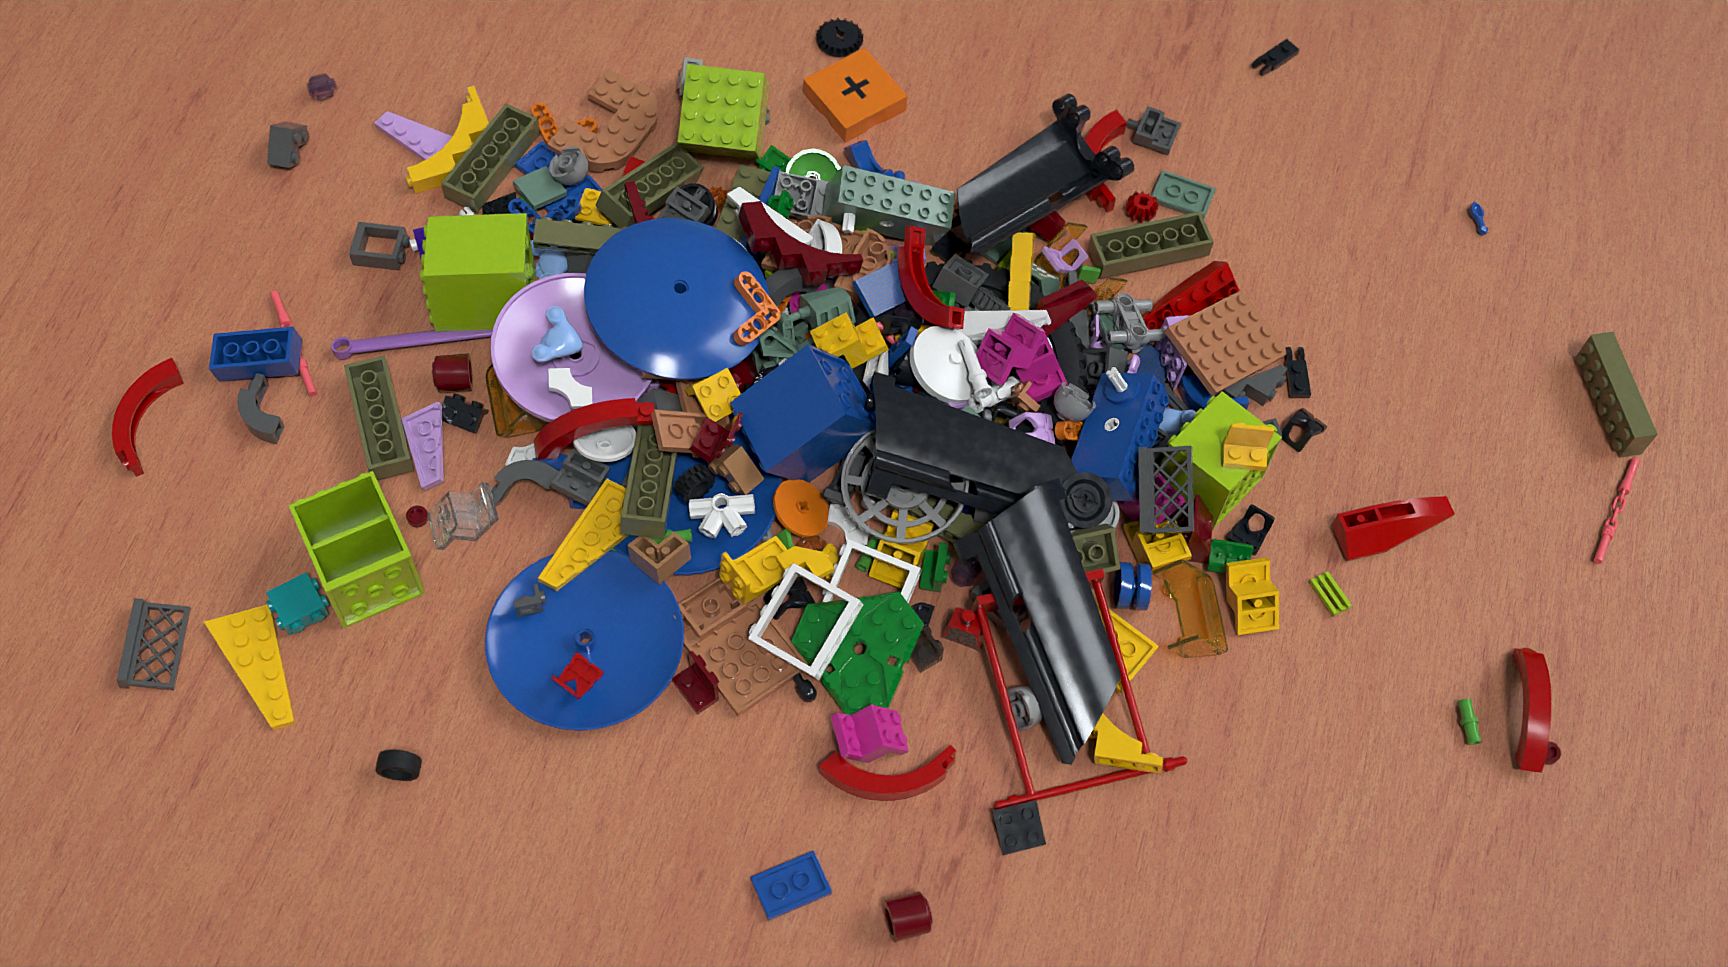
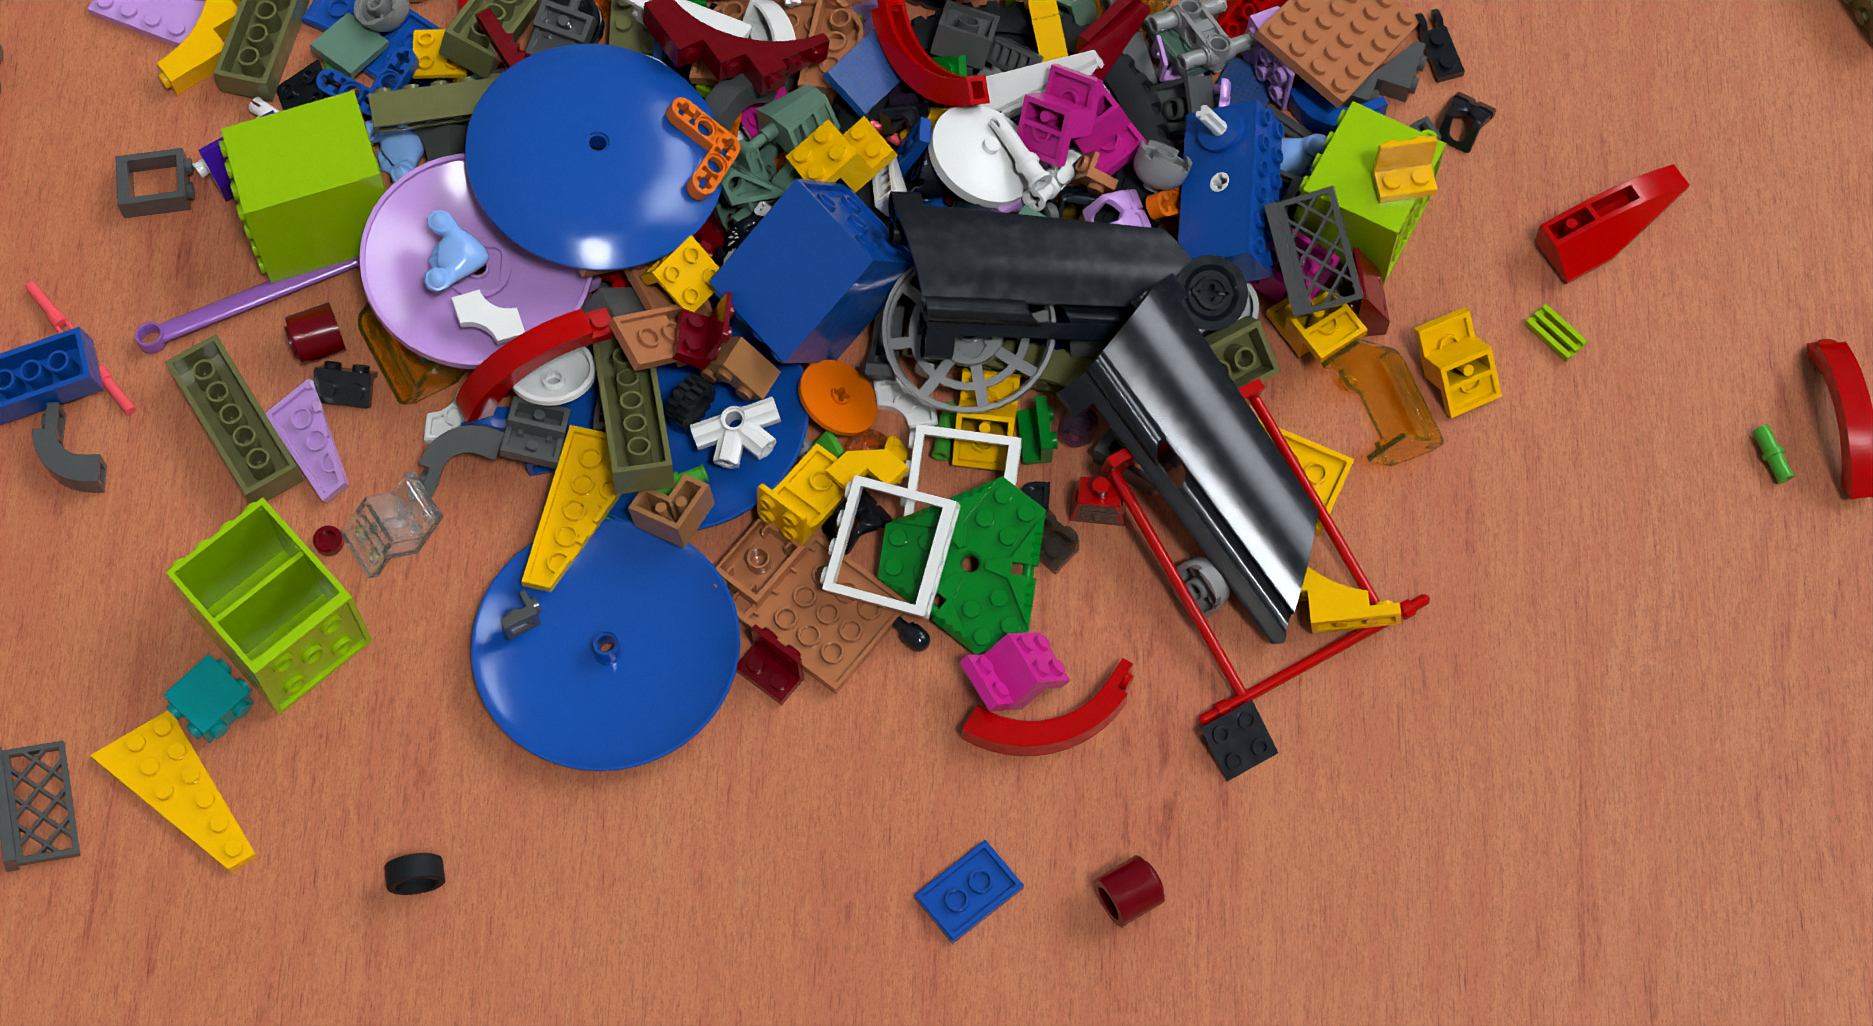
camera: 10 degrees left, 5 degrees up
(581, 672) = (618, 690): red piece -> none
(1133, 586) = (1301, 389): blue wheel -> none
(1227, 552) = (1409, 313): green bracket -> none
(1243, 534) = (1436, 288): black piece -> none

